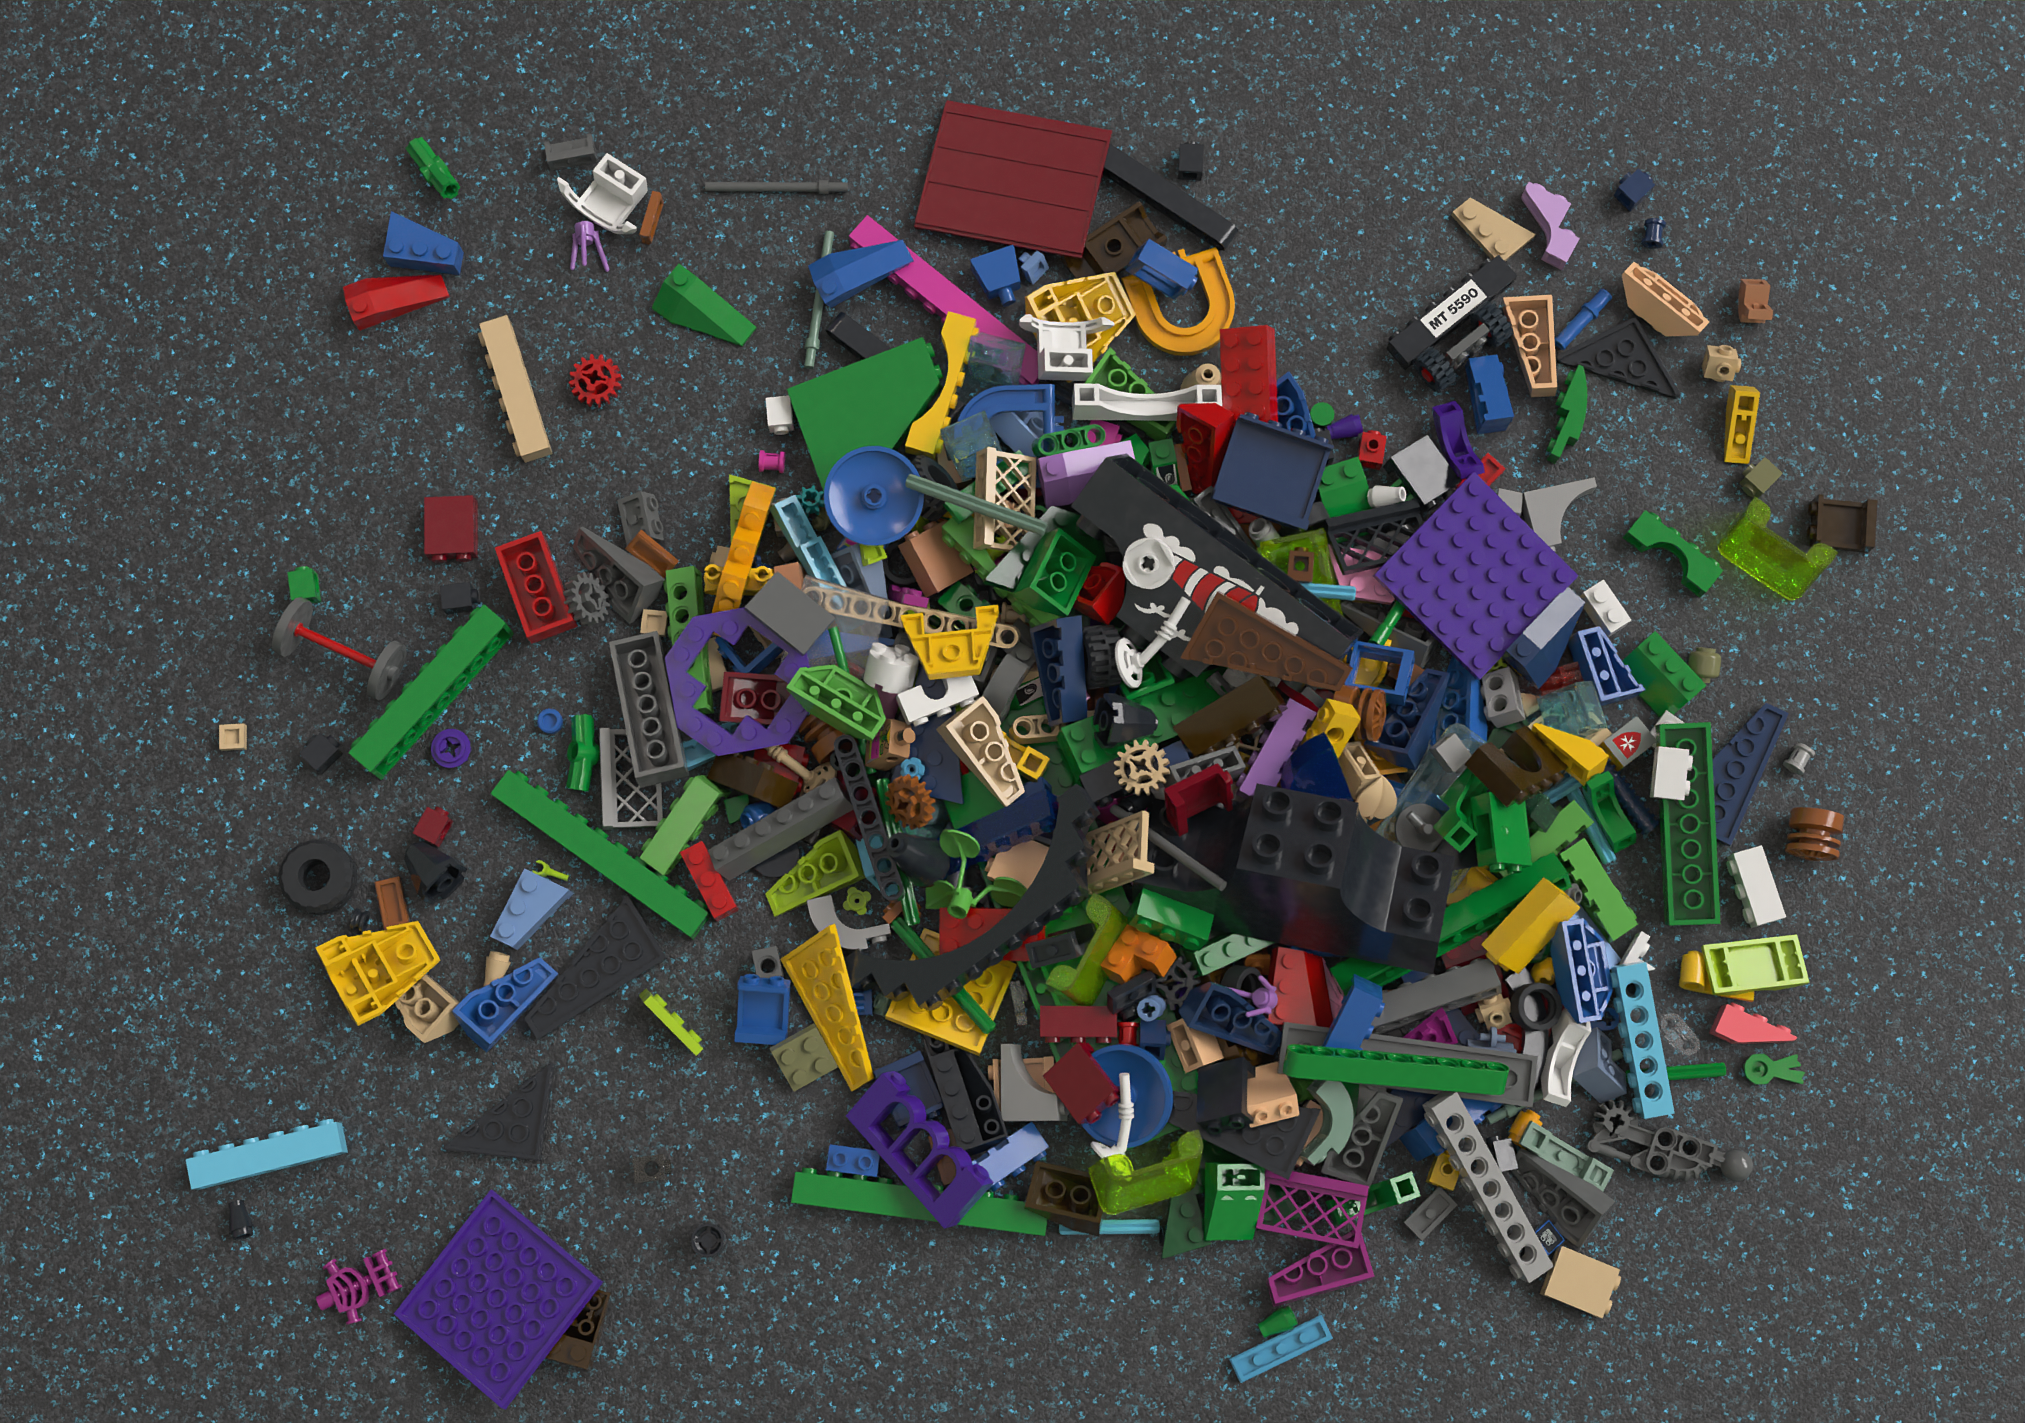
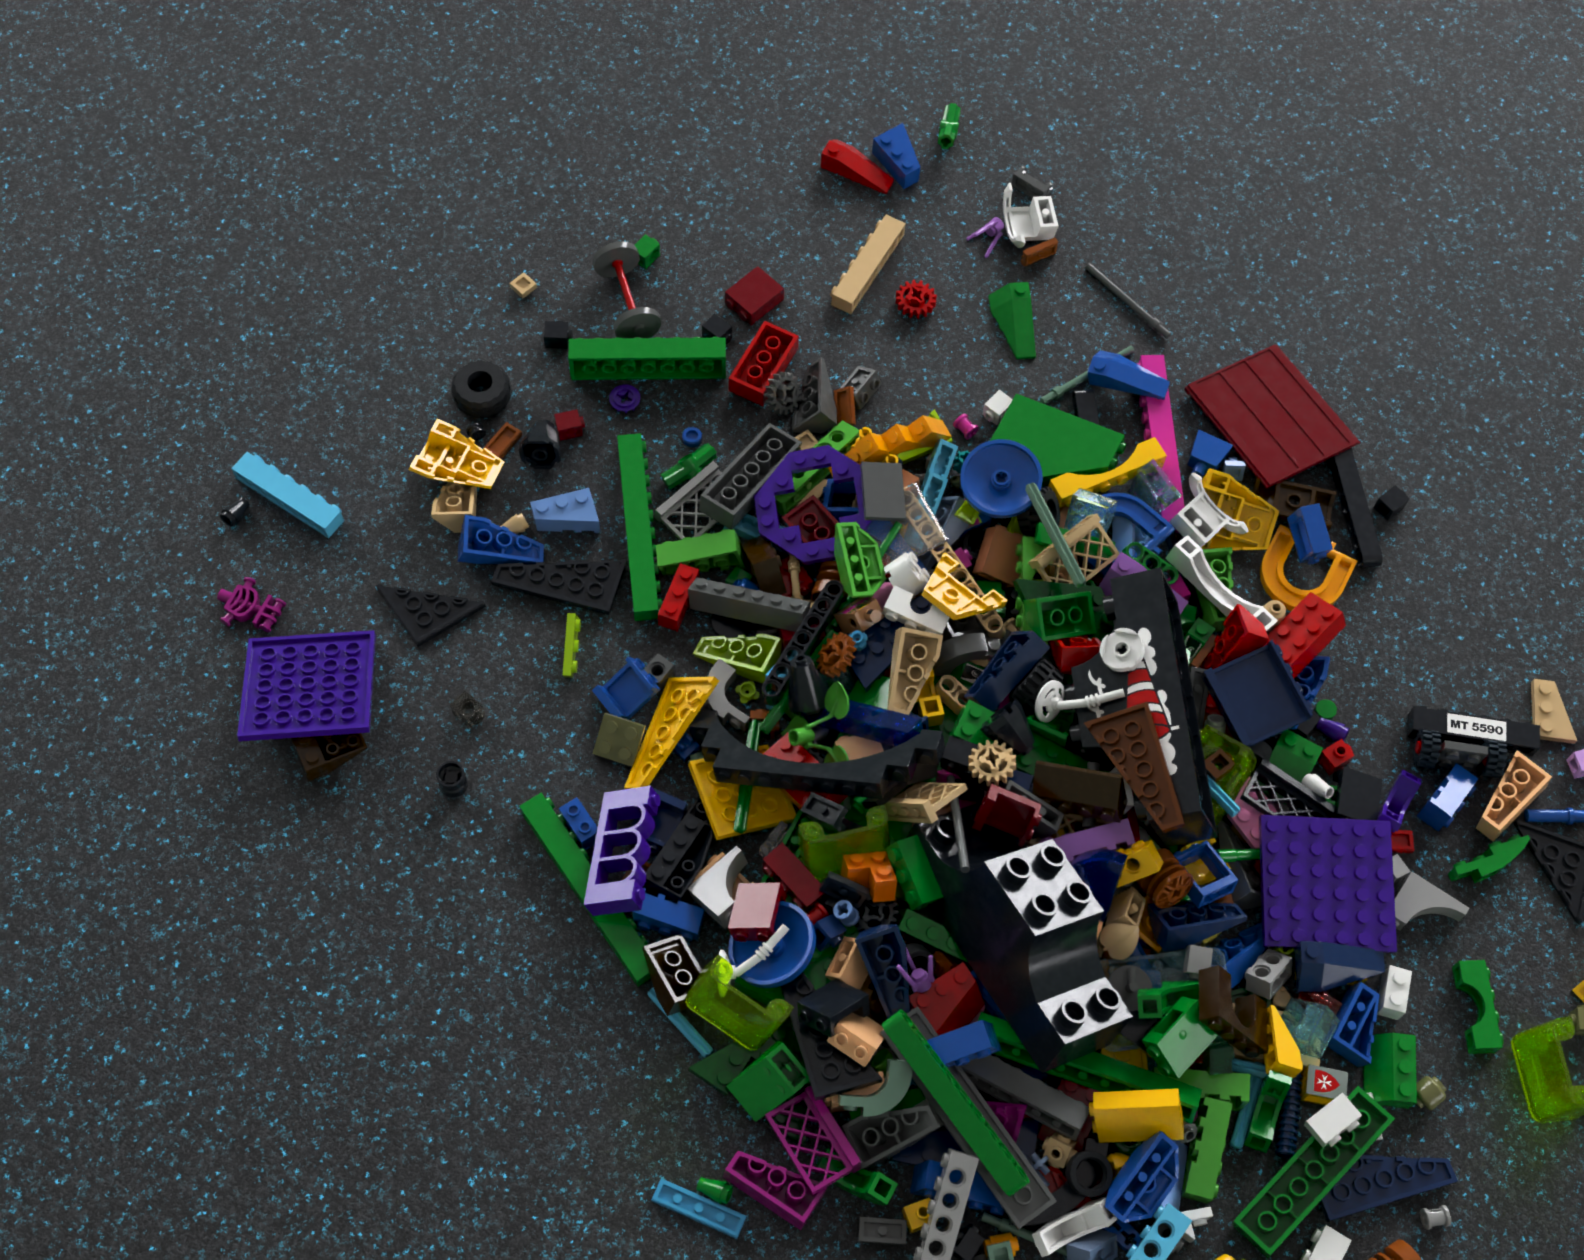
camera: 45 degrees right, 15 degrees down
(550, 872) = (600, 507): lime hand -> none

